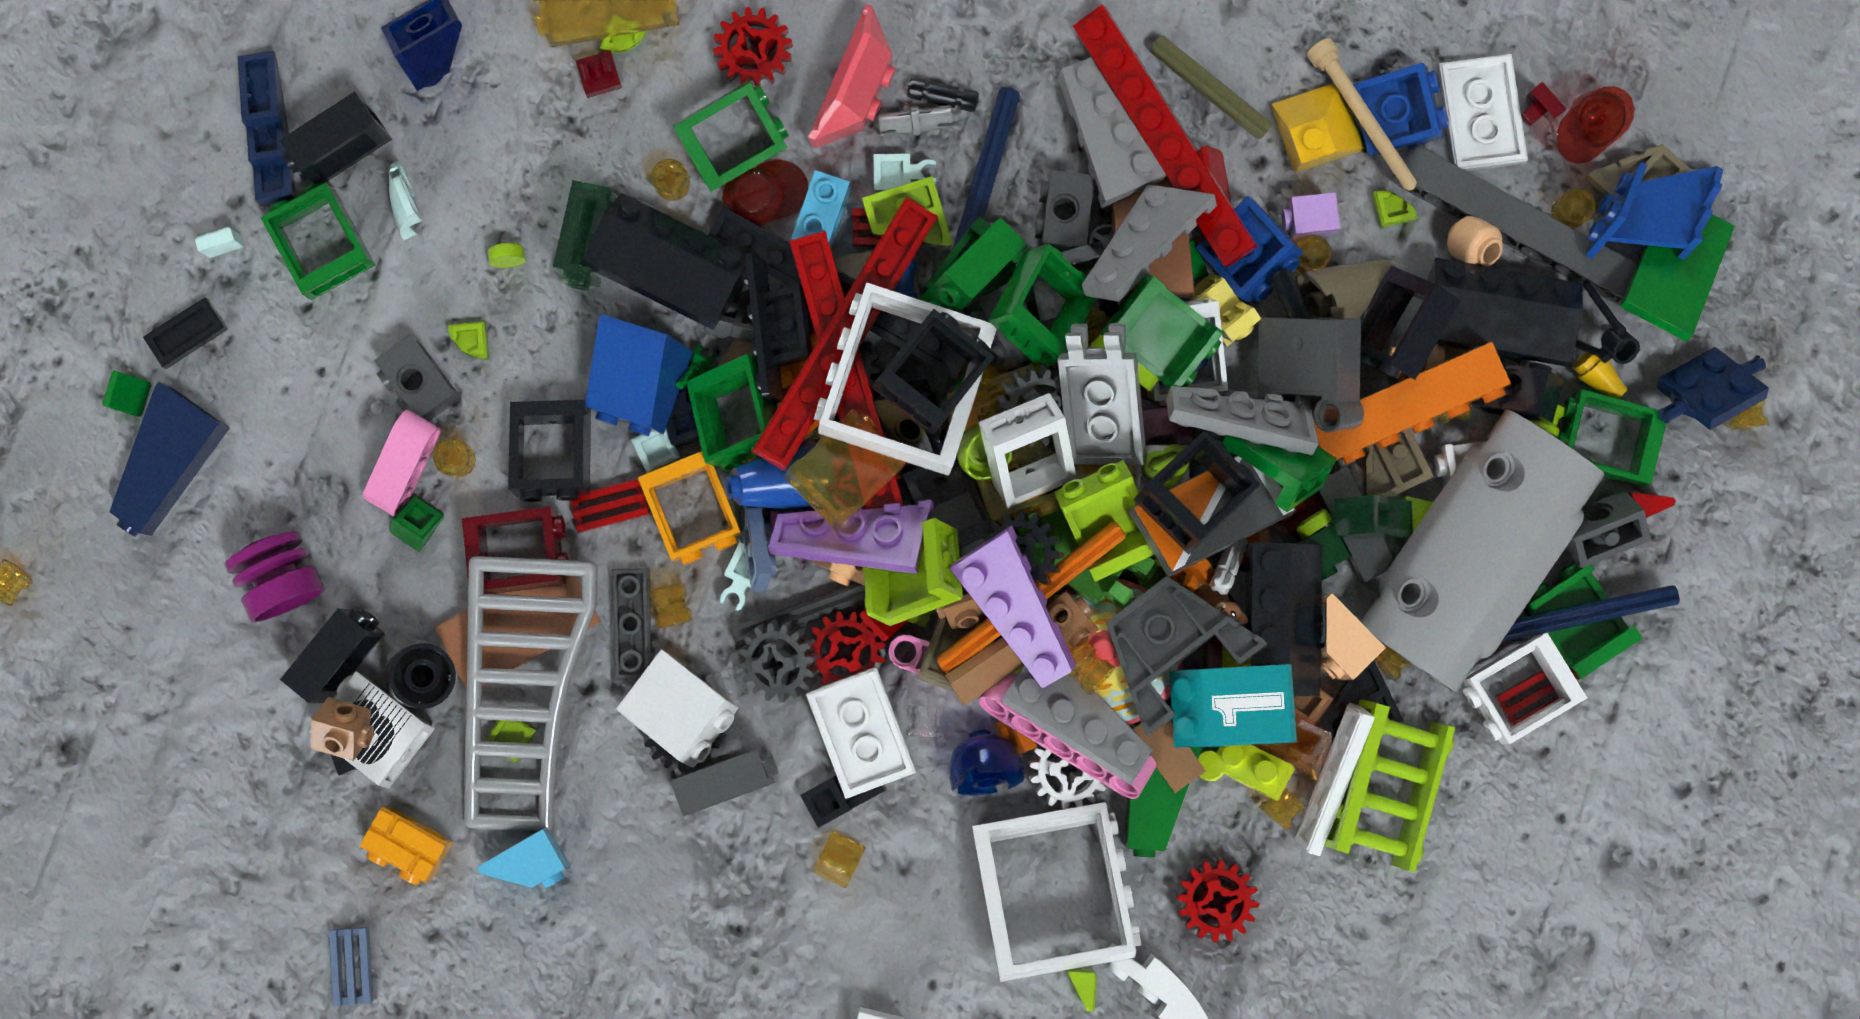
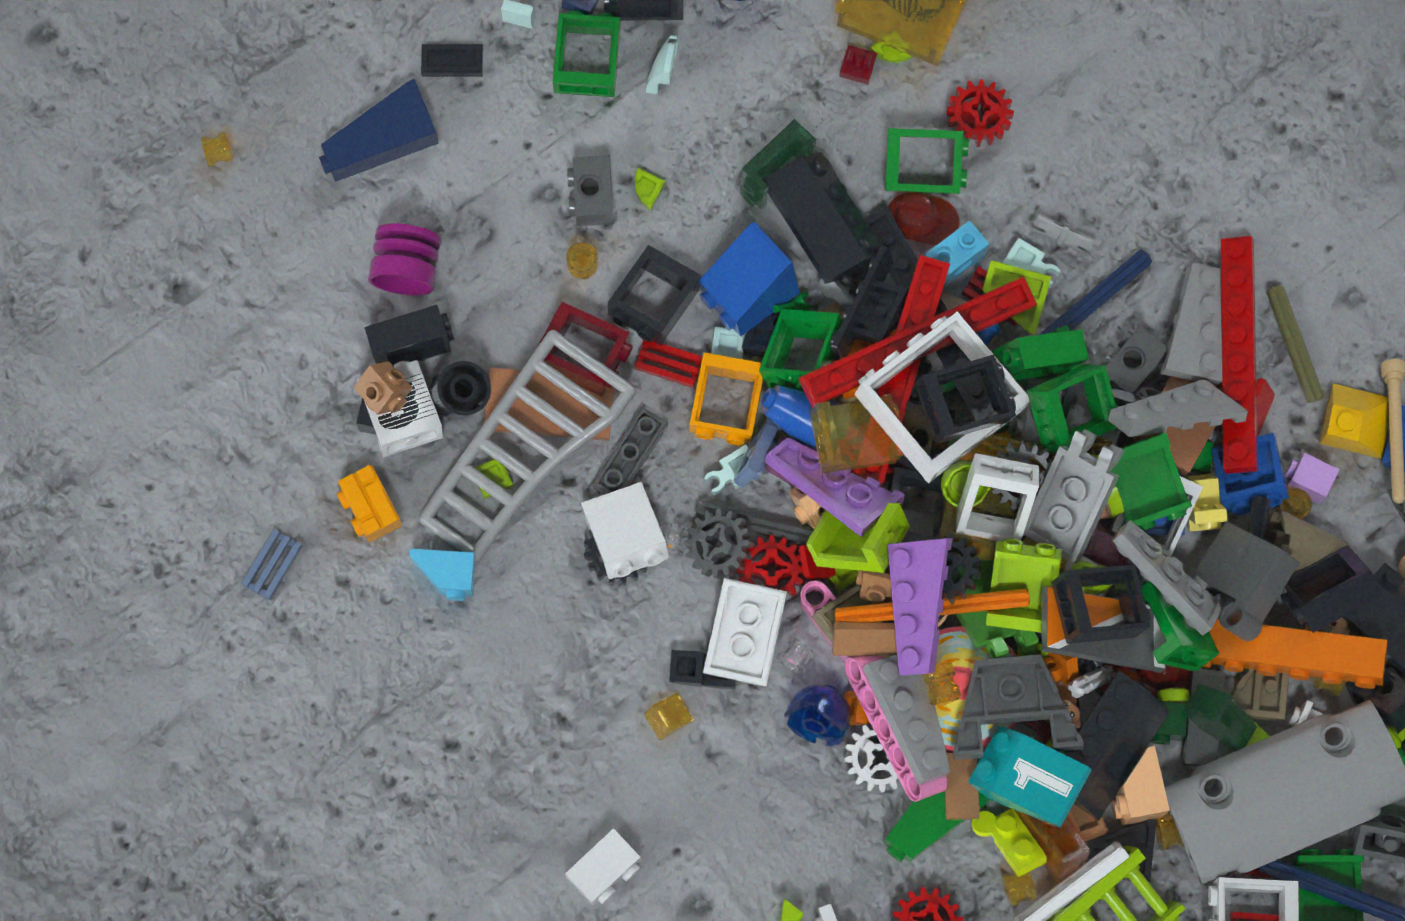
camera: 30 degrees right, 10 degrees down
(126, 394) = (384, 75): green slope -> none
(401, 462) = (544, 239): bright pink beam -> none
(416, 523) = (524, 289): green slope -> none
(506, 255) = (711, 146): lime tile -> none
(670, 606) = (666, 458): clear yellow wheel -> none
(673, 187) = (860, 173): clear yellow wheel -> none
(724, 781) = (625, 602): dark grey window -> none
(856, 84) = (1036, 183): coral wedge -> none
(942, 94) = (1095, 228): black axle -> none
(1077, 613) = (952, 642): medium nougat brick -> none
(1114, 864) = (831, 783): white window -> none
(1392, 209) = (1375, 513): lime tile -> none

